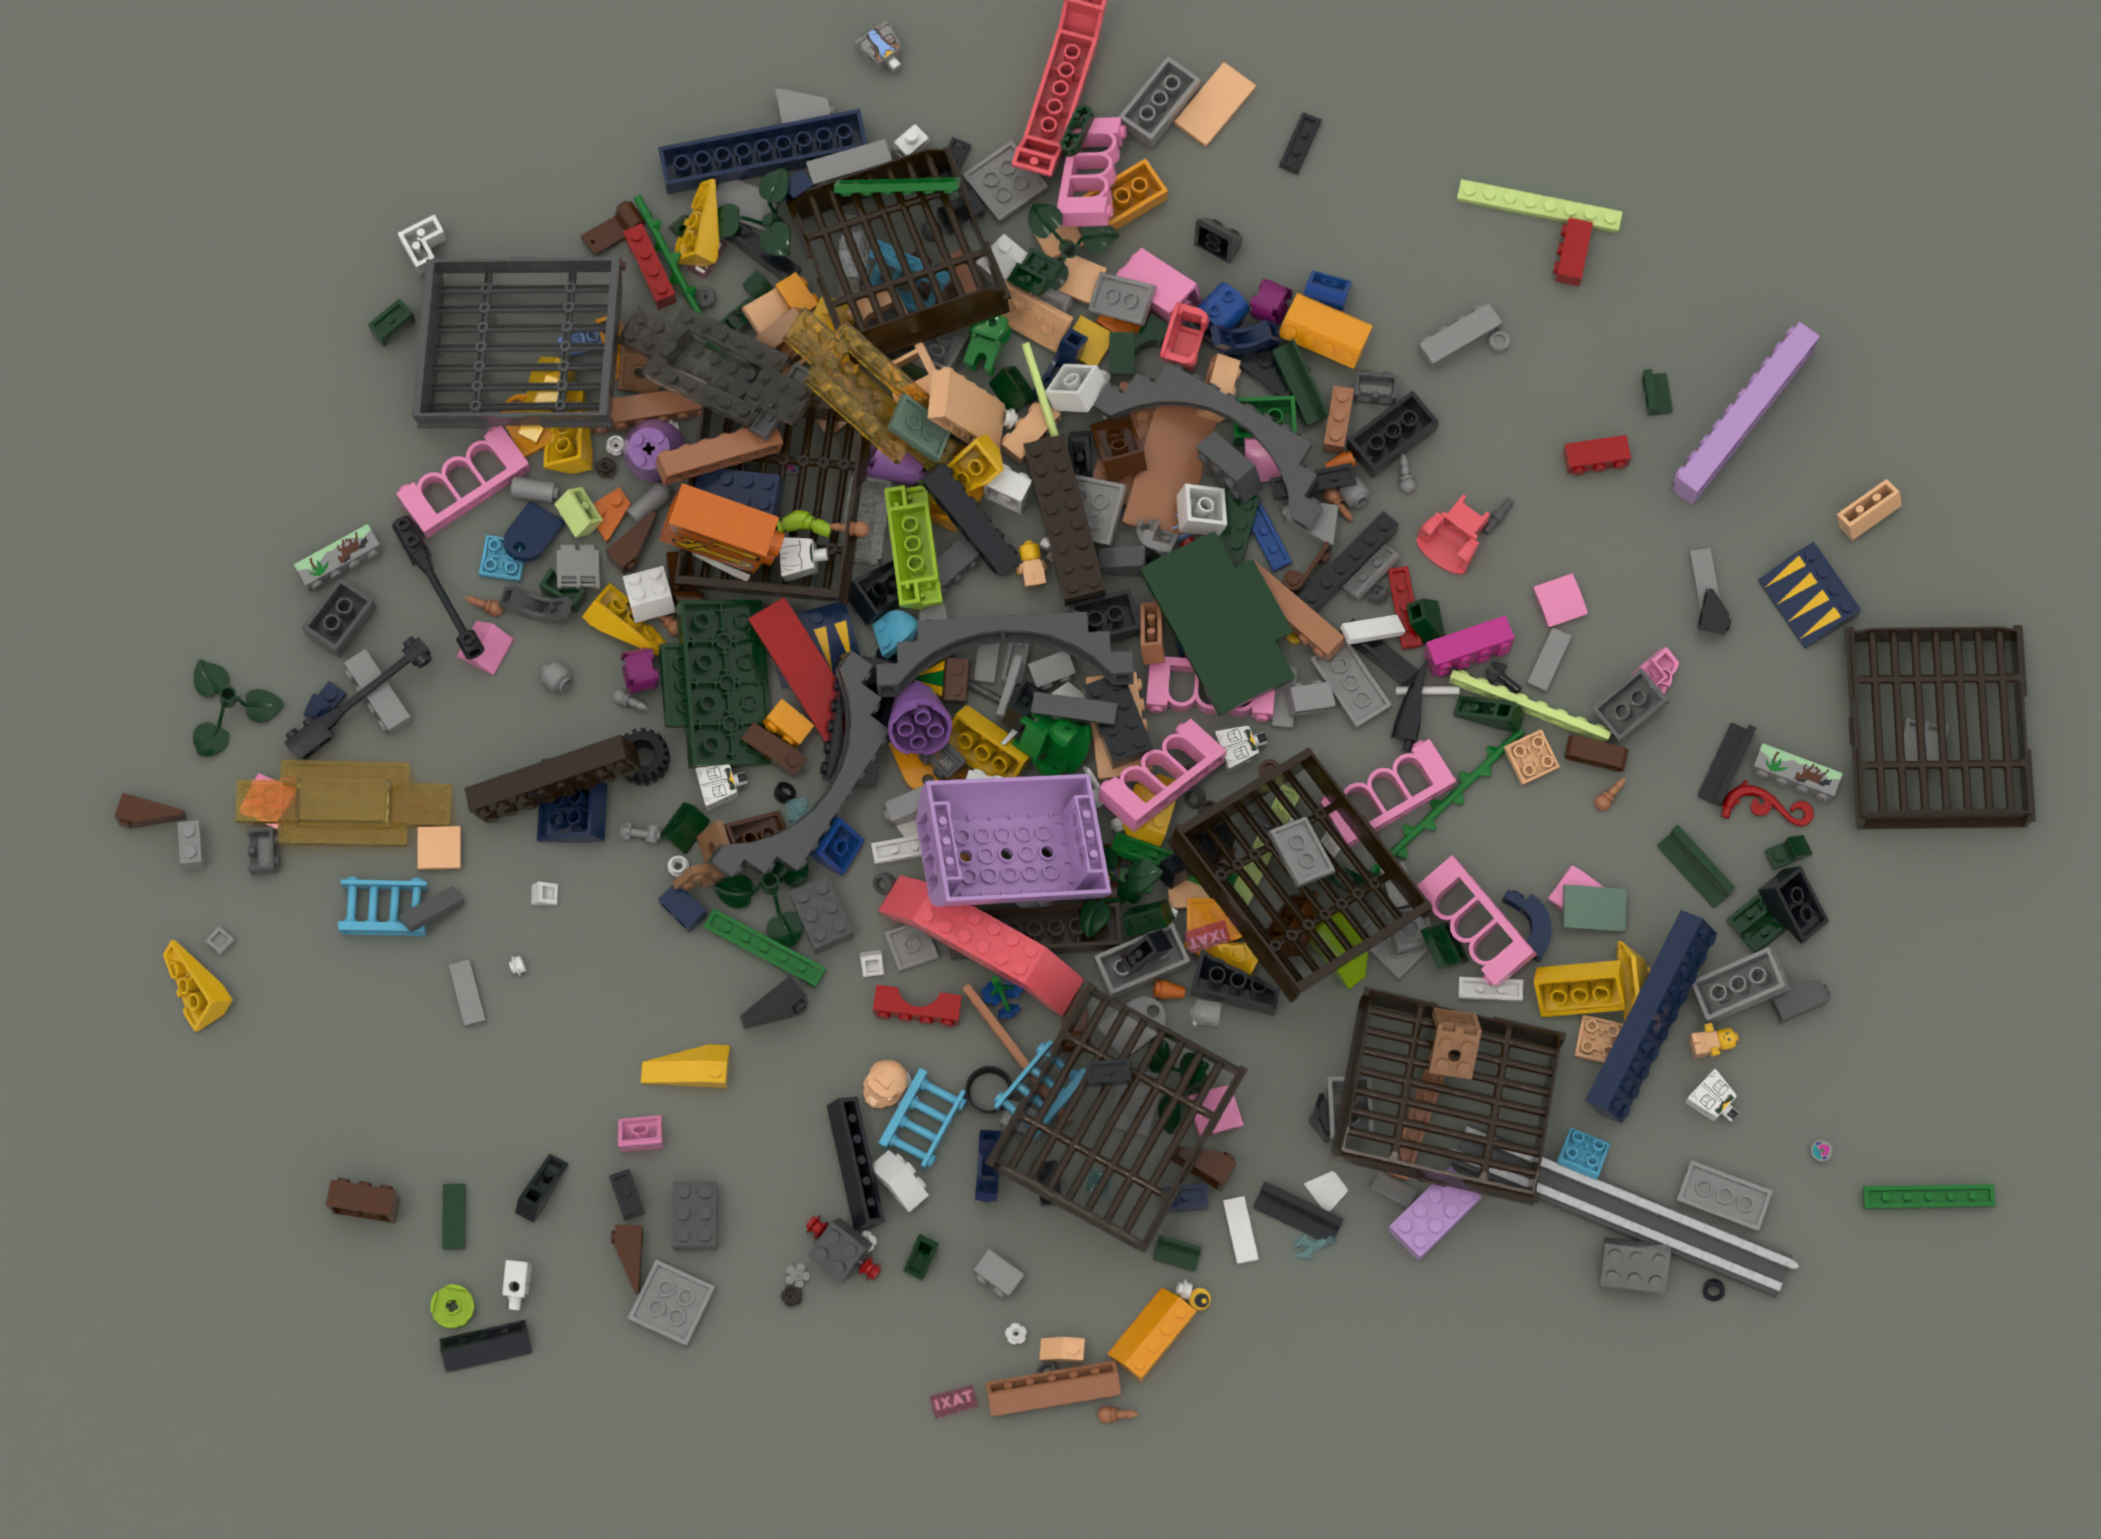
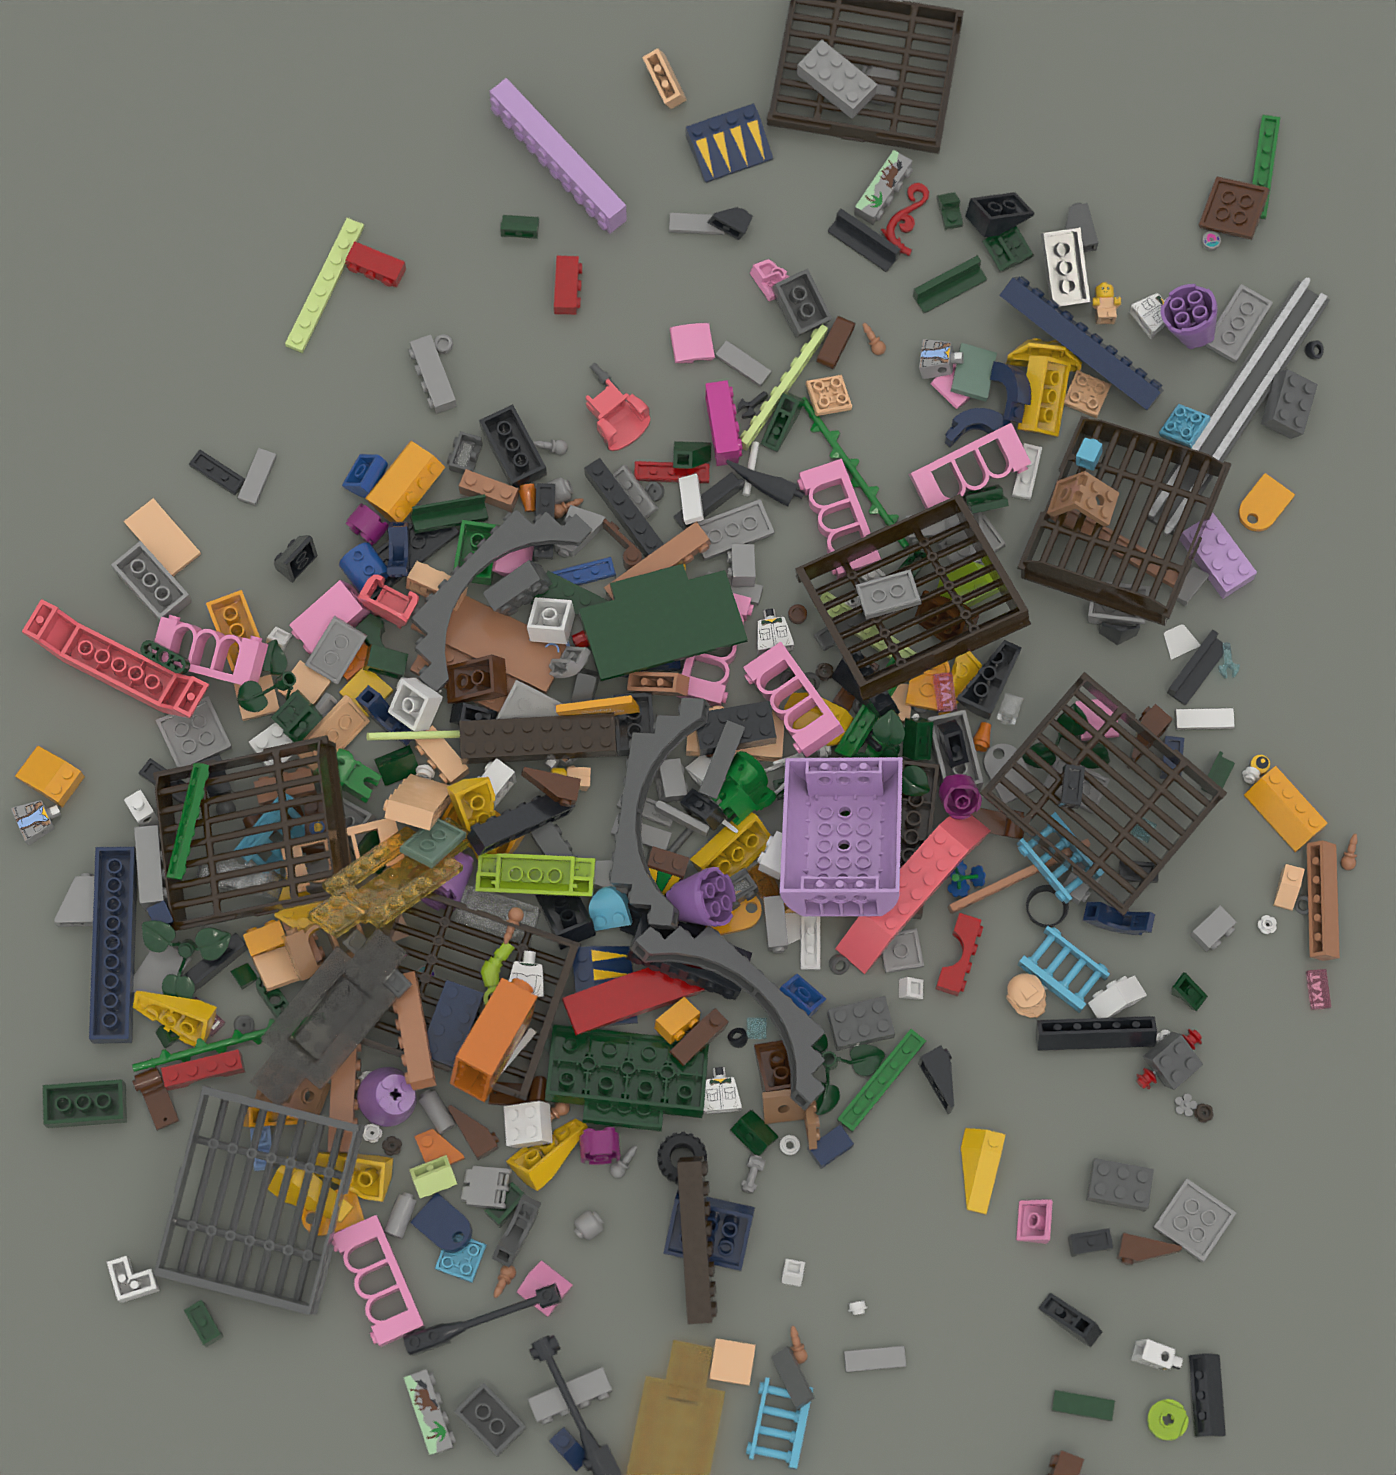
camera: 80 degrees left, 0 degrees up
(459, 915) = (797, 1348): none -> nougat bar
(593, 160) = (84, 1103): none -> dark green brick
(931, 53) = (50, 776): none -> light orange slope
(1013, 551) = (556, 786): none -> reddish brown slope
(1087, 965) = (960, 796): none -> magenta brick
(1107, 572) = (615, 705): none -> light orange tile
(1126, 243) = (282, 637): none -> white slope
(1304, 183) = (257, 476): none -> light grey tile
(1512, 1260) = (1264, 502): none -> light orange tile
(1513, 1040) = (1089, 453): none -> medium azure brick
(1579, 954) = (1017, 389): none -> dark blue arch
(1599, 864) = (938, 358): none -> light grey torso
(1710, 1131) = (1191, 315): none -> medium lavender cone
(1865, 1168) = (1234, 208): none -> reddish brown plate
(1905, 689) = (836, 79): none -> light grey brick

